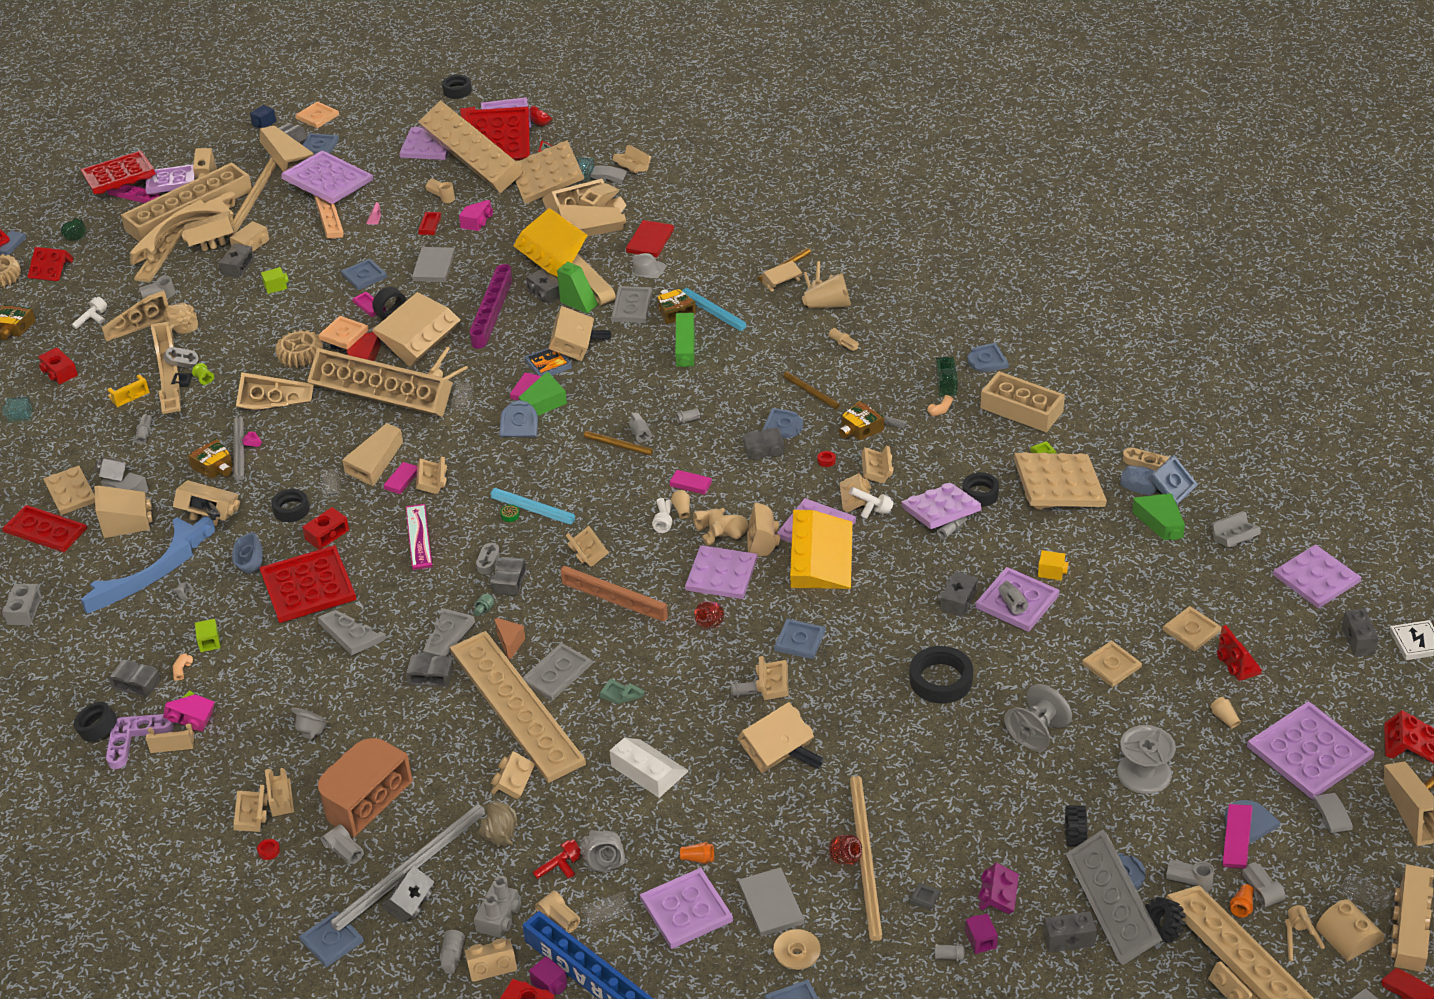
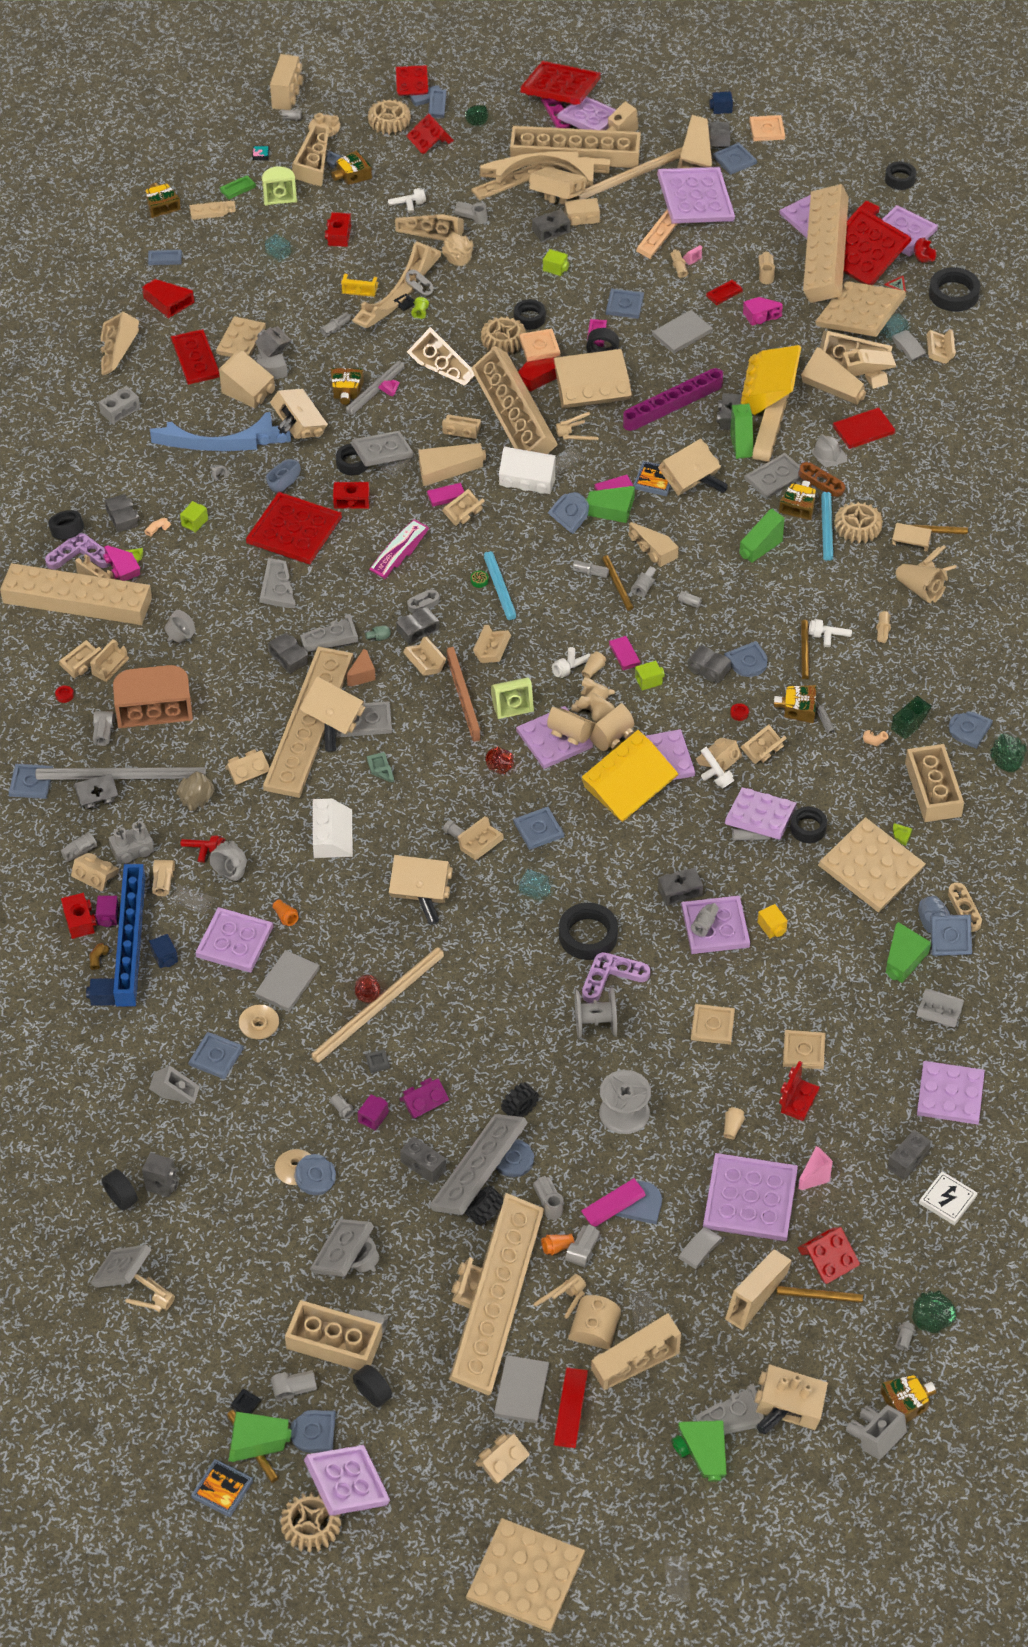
camera: 45 degrees right, 10 degrees up
(26, 241) = (437, 103): none -> sand blue tile
(176, 765) = (76, 594): none -> tan brick
(300, 315) = (530, 305): none -> black tyre
(309, 479) = (382, 448): none -> light grey tile
(350, 426) = (461, 426): none -> tan bracket
(371, 226) = (679, 264): none -> tan axle
(450, 415) = (527, 470): none -> white slope
(535, 672) = (334, 708): none -> tan piece
(548, 590) = (425, 657): none -> tan bracket
(586, 448) = (589, 568): none -> light grey axle
(591, 114) = (957, 275): none -> black tyre
(612, 399) = (656, 545): none -> tan slope
(642, 966) = (163, 951): none -> dark blue brick
(657, 284) = (807, 476): none -> dark orange beam
(657, 566) = (512, 698): none -> yellowish green brick
(732, 481) = (649, 675): none -> lime brick
(733, 291) = (858, 522): none -> tan gear
(733, 547) = (569, 724): none -> tan brick
(804, 370) = (816, 629): none -> white piece
(858, 675) = (534, 885): none -> clear light blue brick
(991, 688) = (610, 967): none -> lavender beam
(1036, 351) = (1008, 752): none -> clear green hair
(1322, 689) = (816, 1171): none -> bright pink slope

